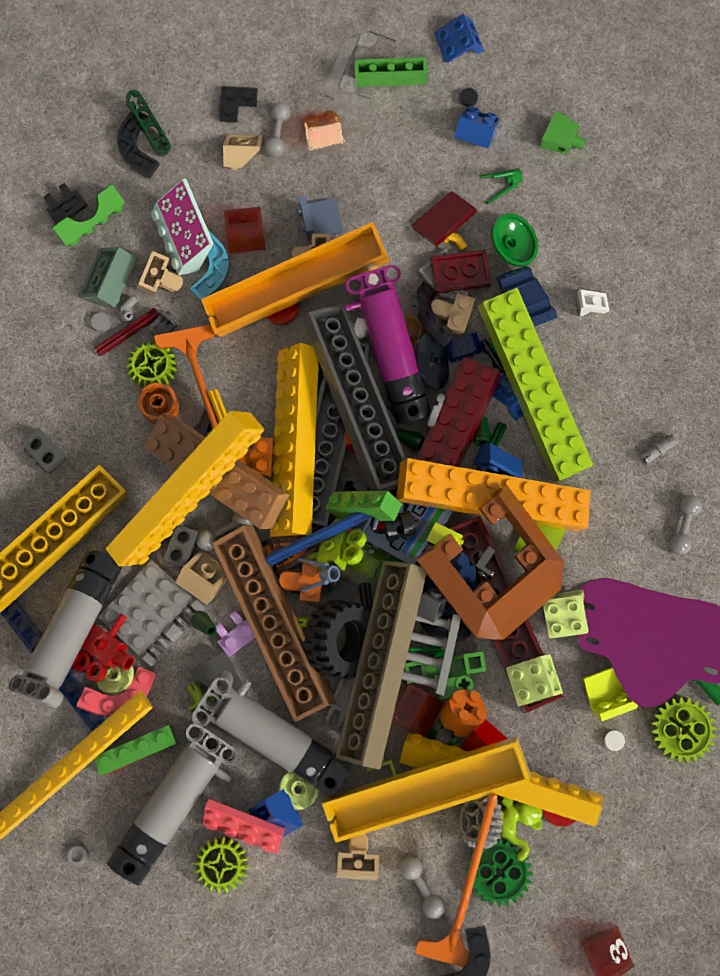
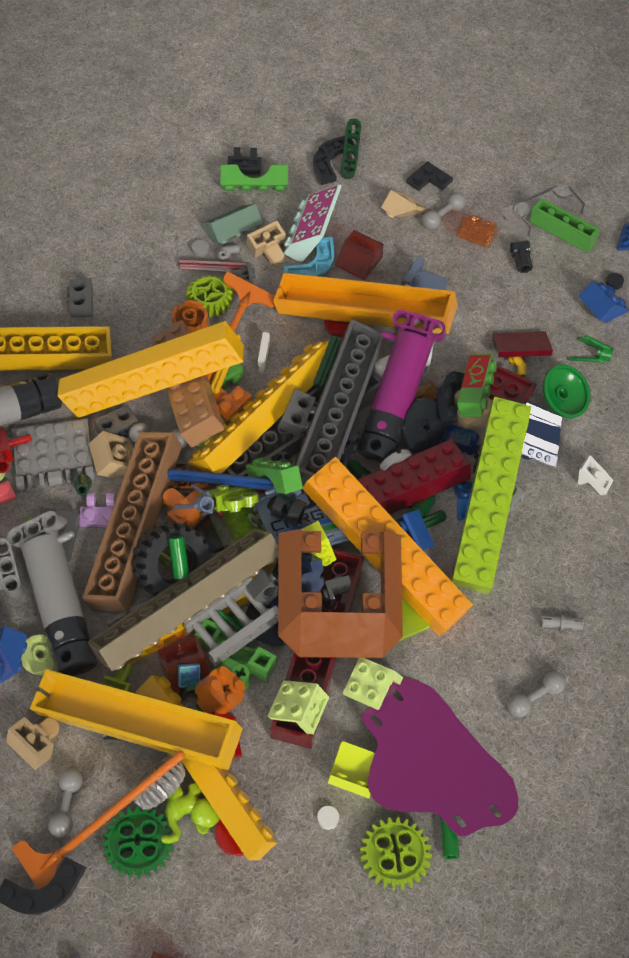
camera: 35 degrees right, 20 degrees down
(242, 385) = (264, 350): none -> white tile
(313, 362) = (327, 361): none -> dark green axle
(324, 431) = (297, 413): none -> dark grey brick
(352, 638) = (178, 557): none -> green piece
(373, 125) = (521, 254): none -> black piece
(428, 717) = (188, 674): none -> tile
(446, 292) = (476, 385): none -> bright green brick

